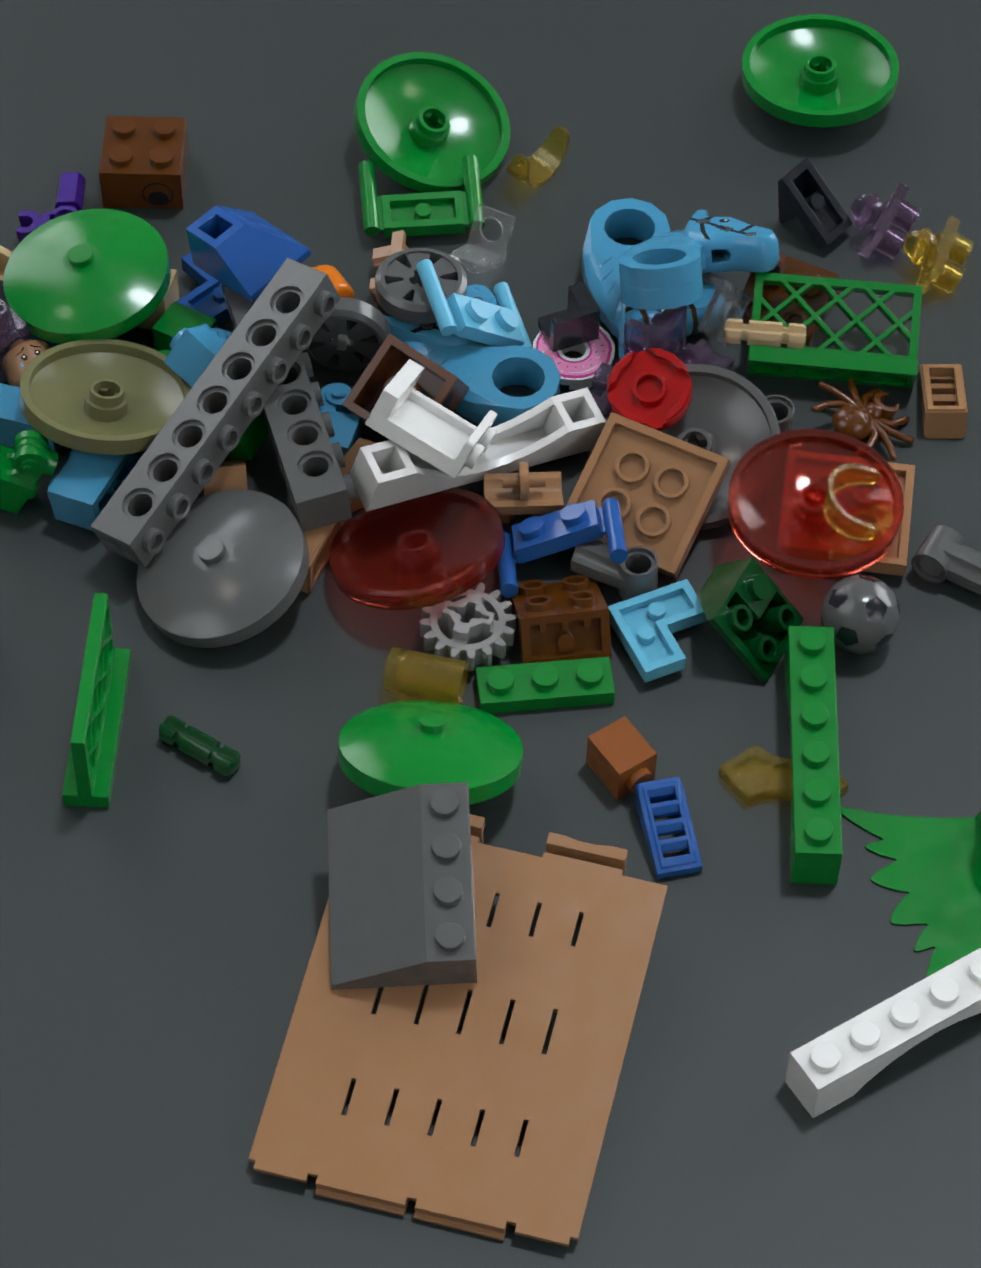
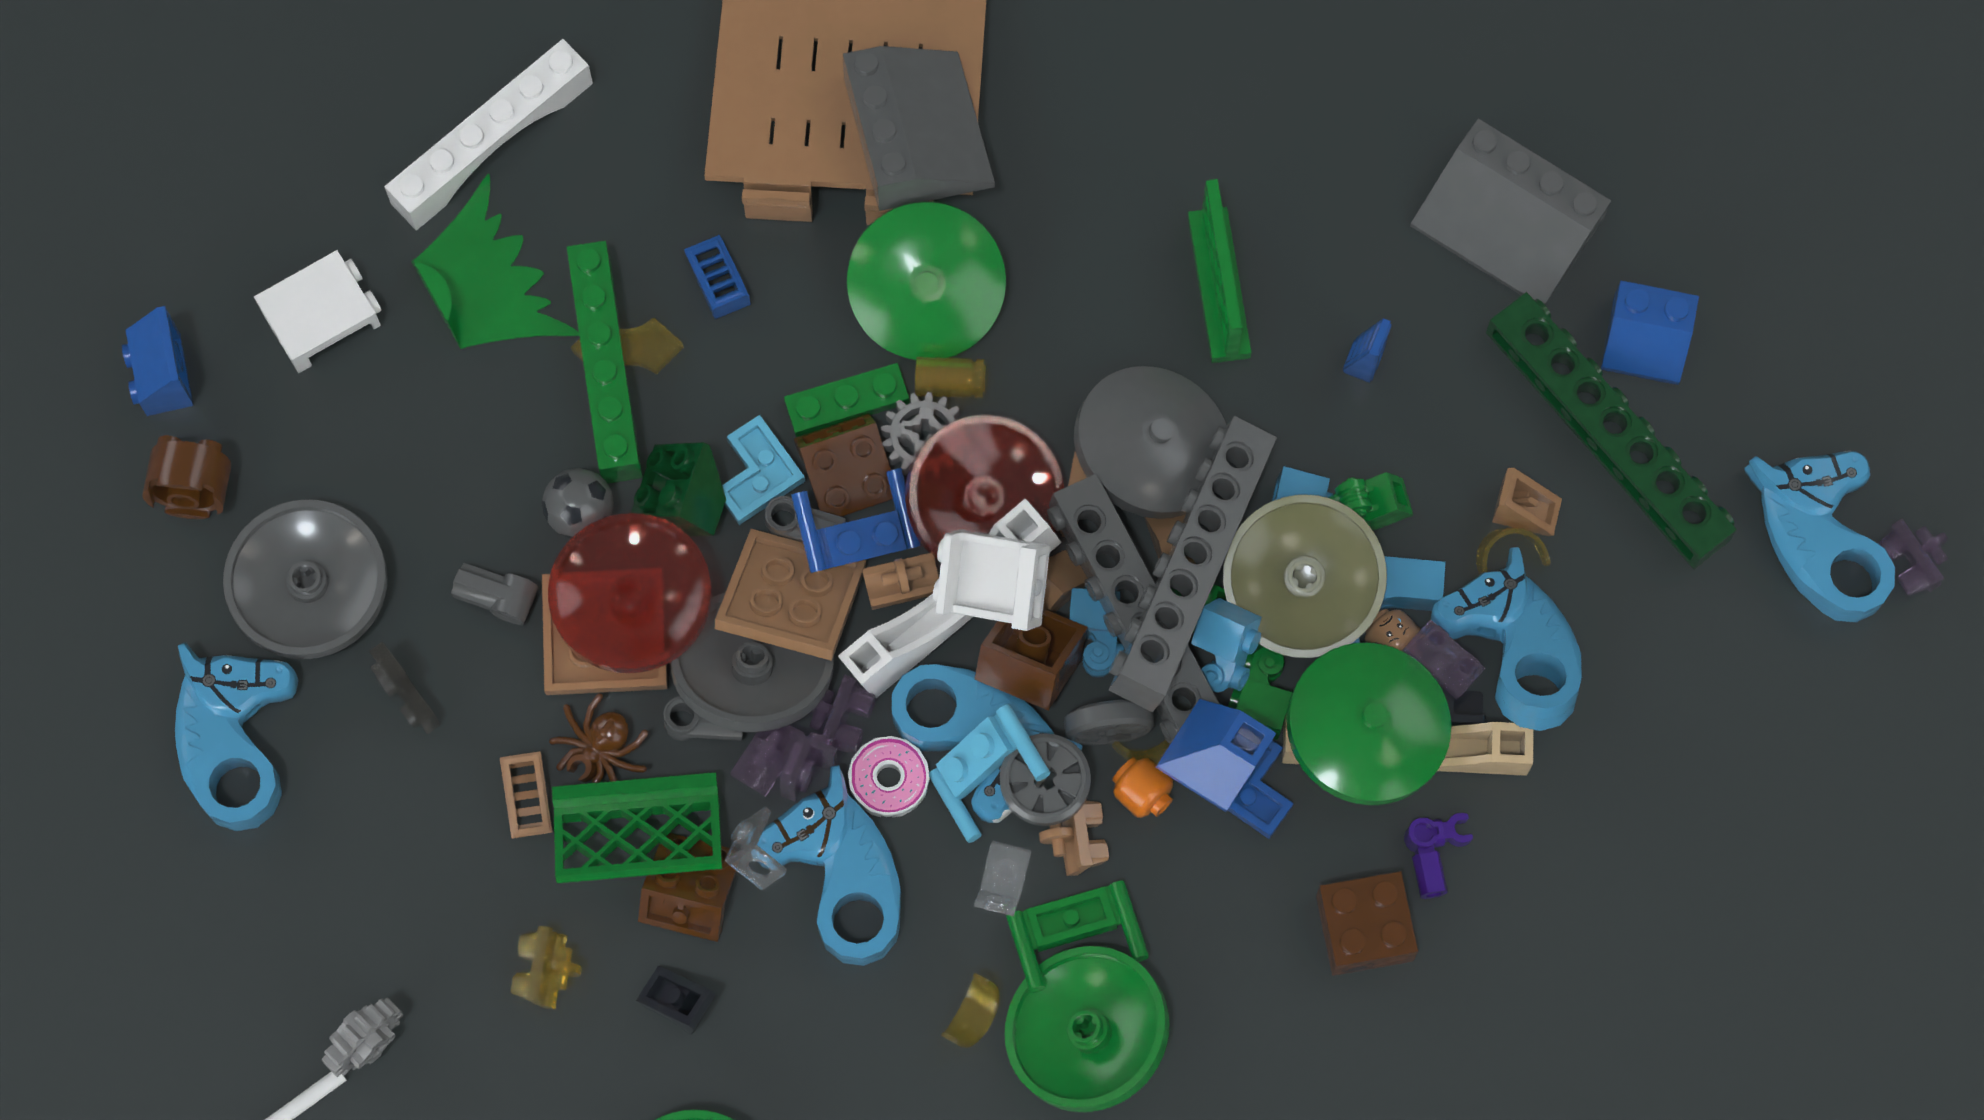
camera: 170 degrees right, 20 degrees up
(199, 745) = (1127, 279): dark green axle -> none
(575, 324) = (897, 792): black panel -> none
(621, 757) = (766, 327): dark orange brick -> none
(650, 388) = (801, 690): red tile -> none
(670, 266) = (807, 856): dark azure animal -> none
(764, 333) = (703, 799): tan axle -> none
(836, 516) = (613, 594): clear yellow helmet -> none
(871, 212) = (608, 1003): clear purple hips -> none

